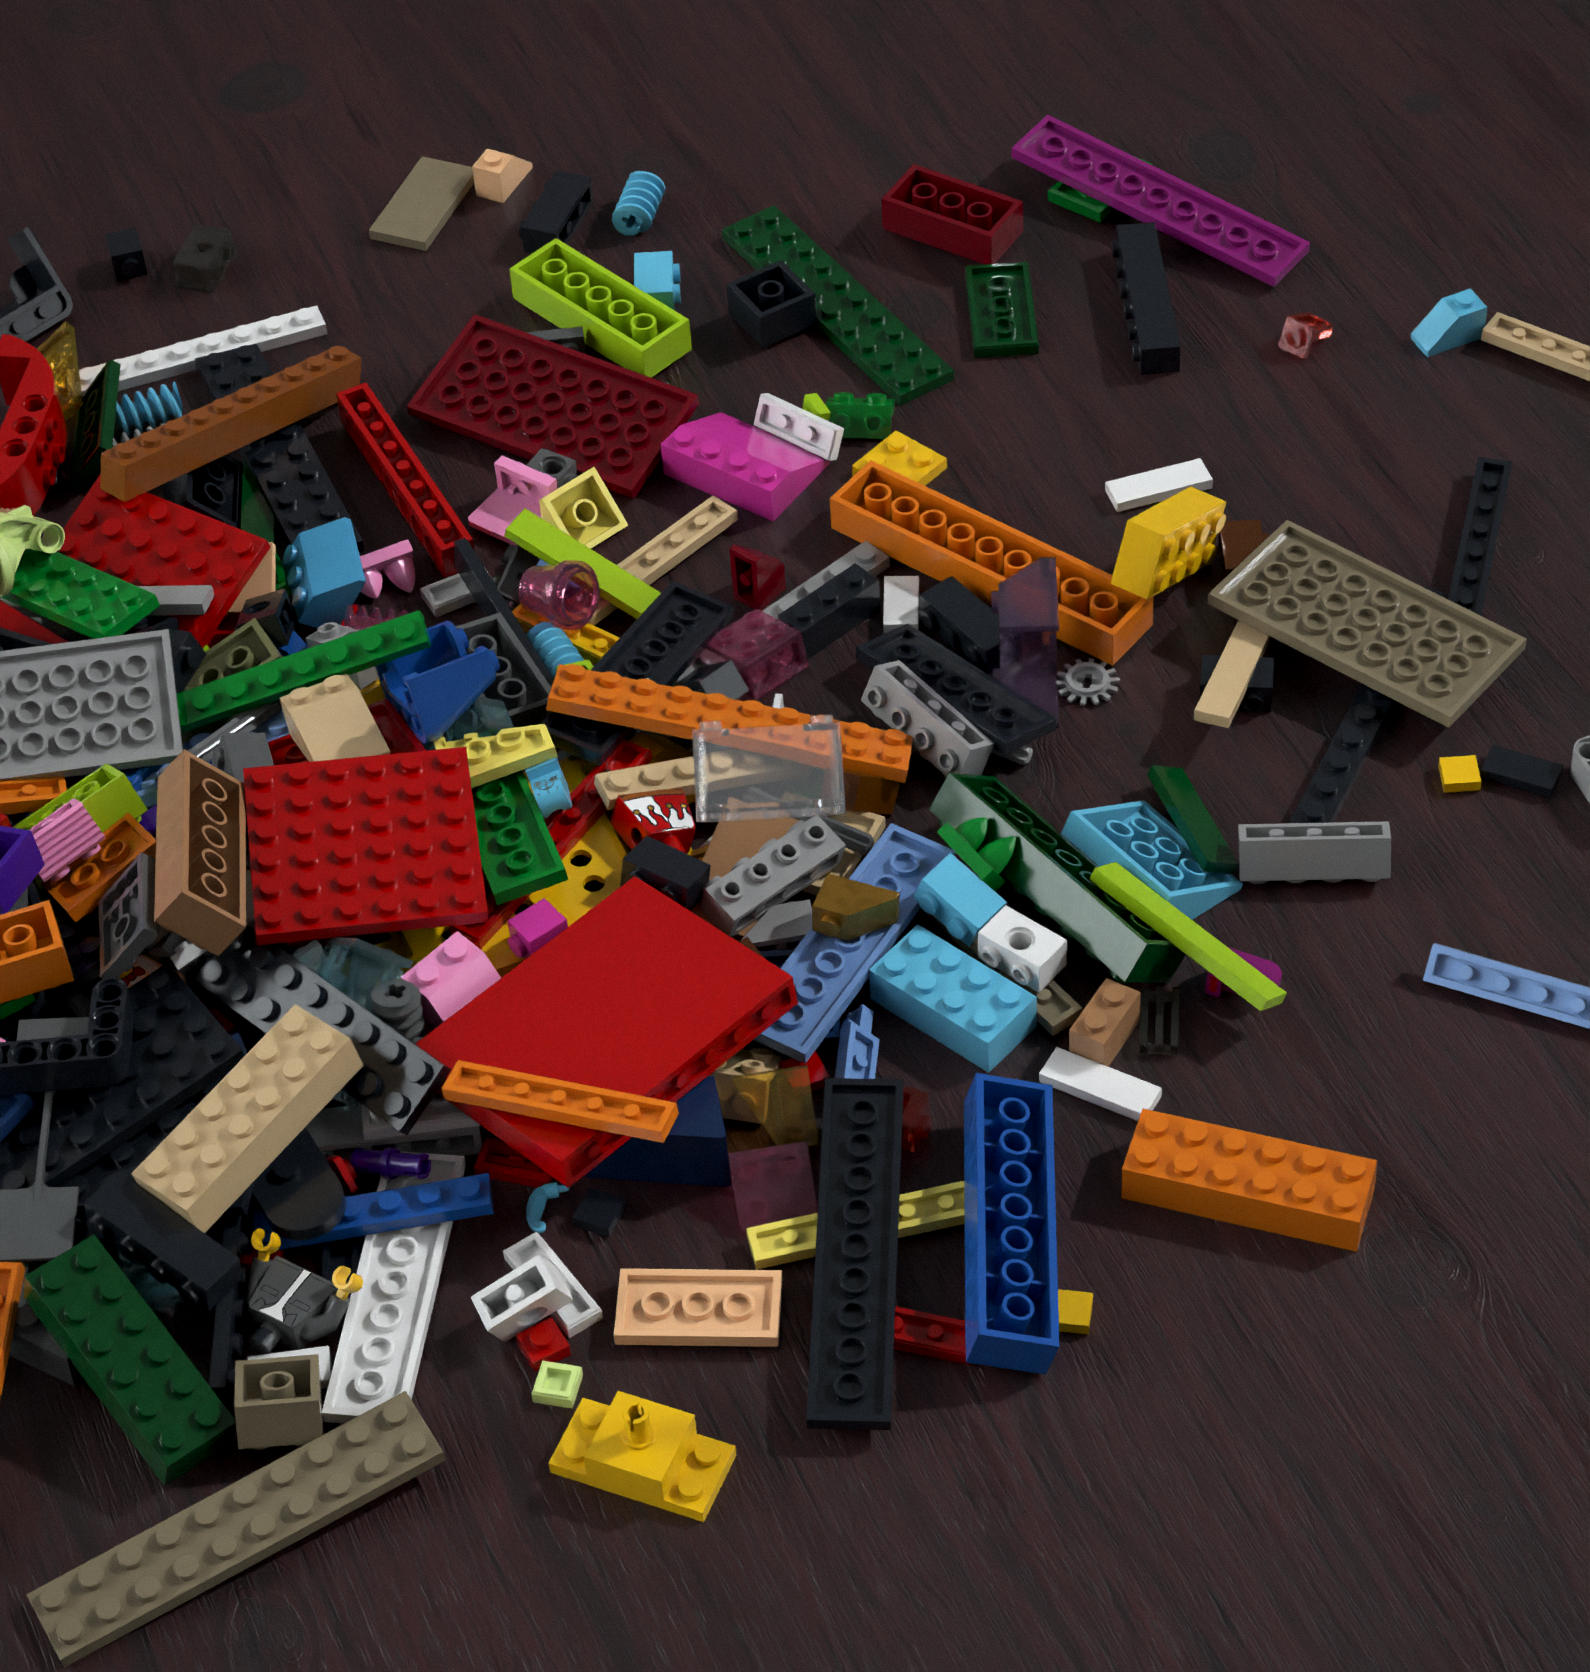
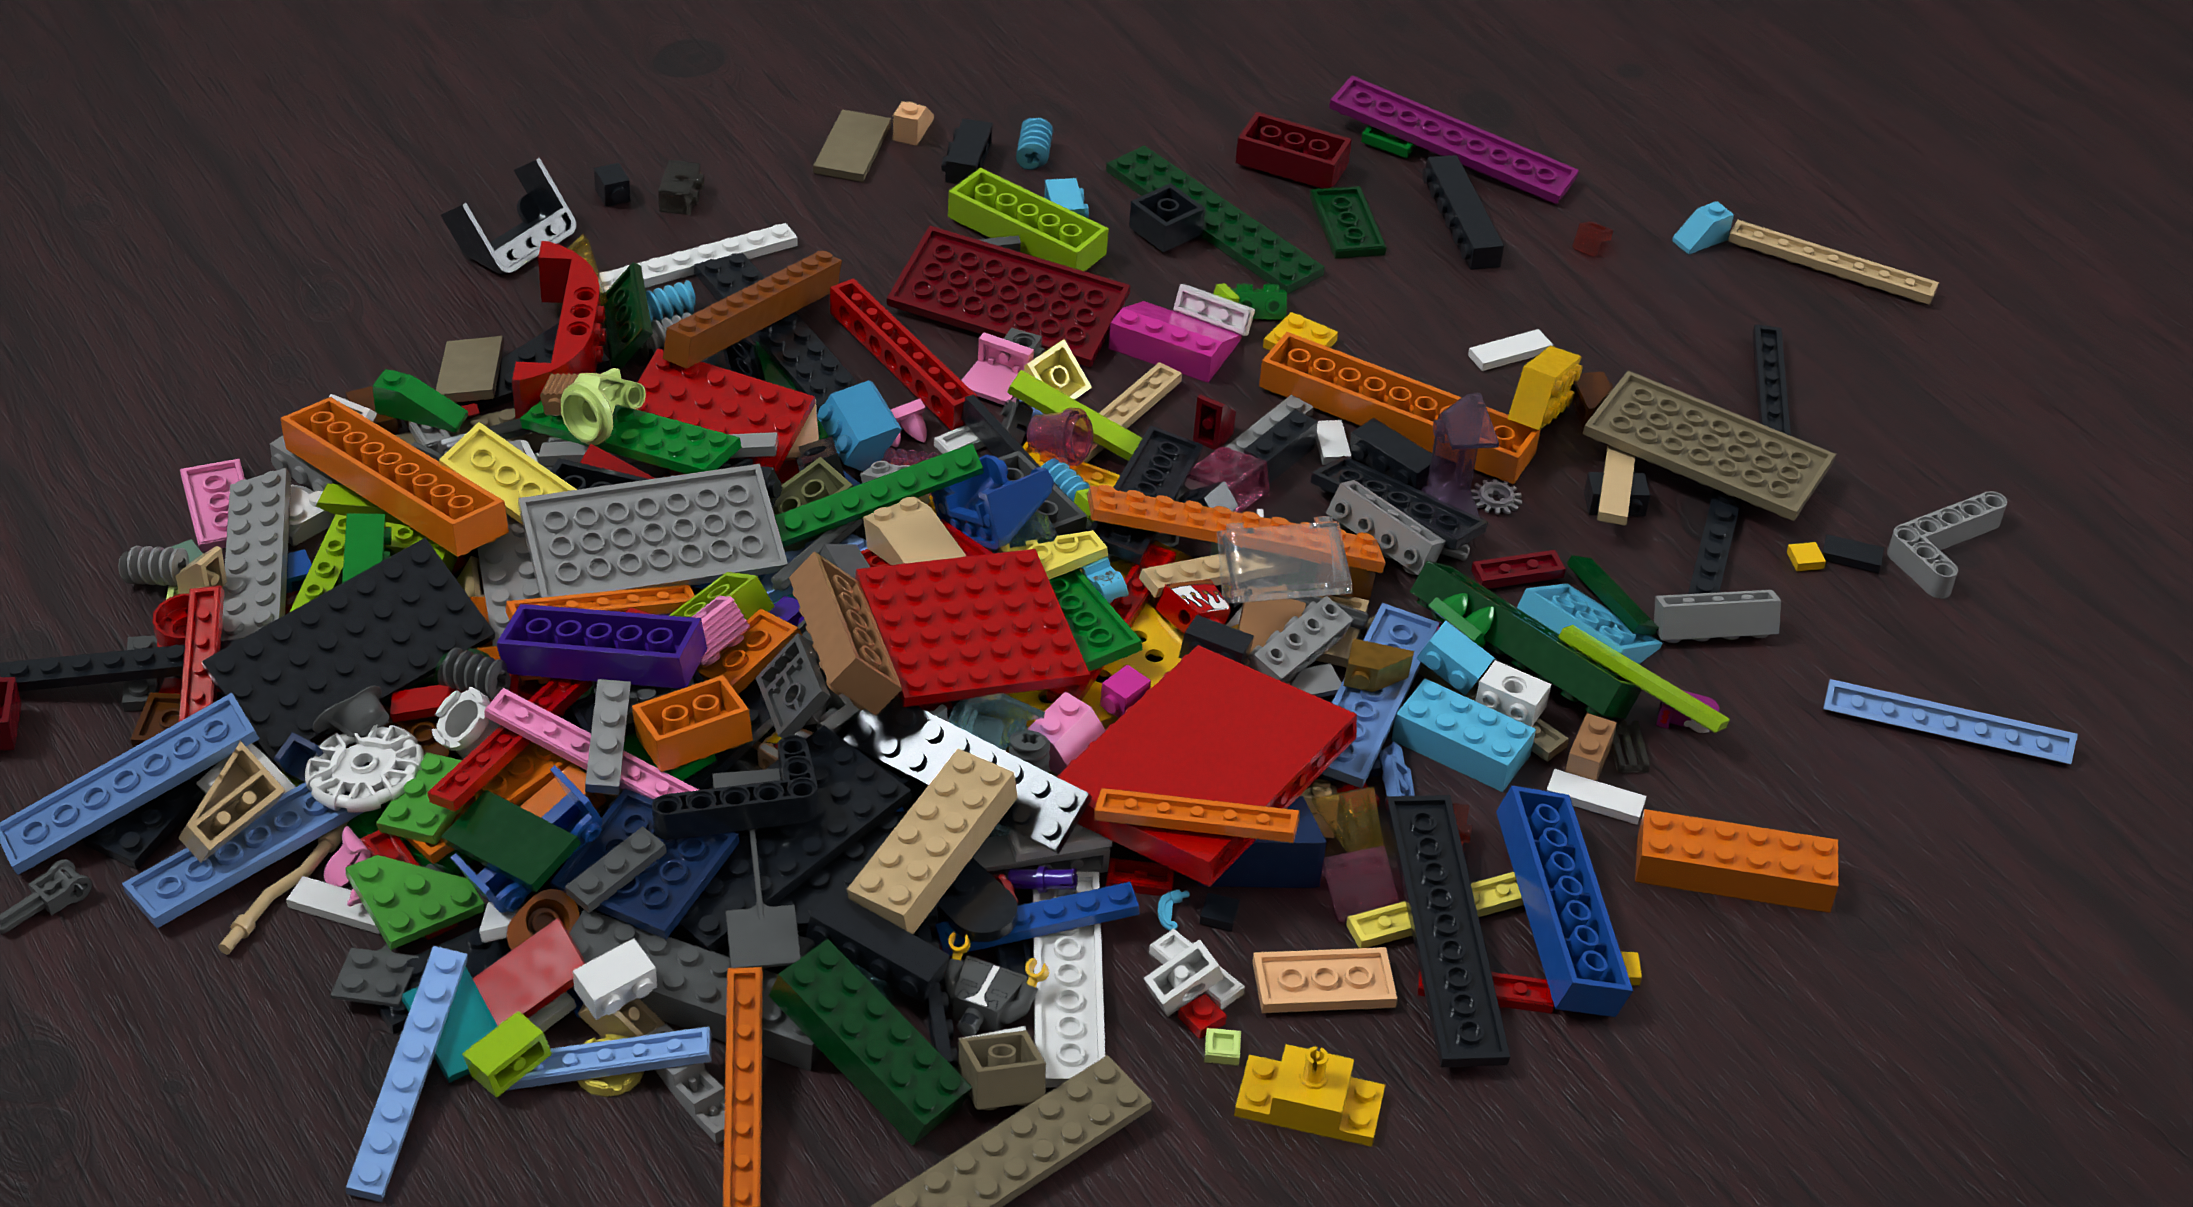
camera: 15 degrees left, 5 degrees down
(1084, 780) = (1518, 569): none -> dark red plate

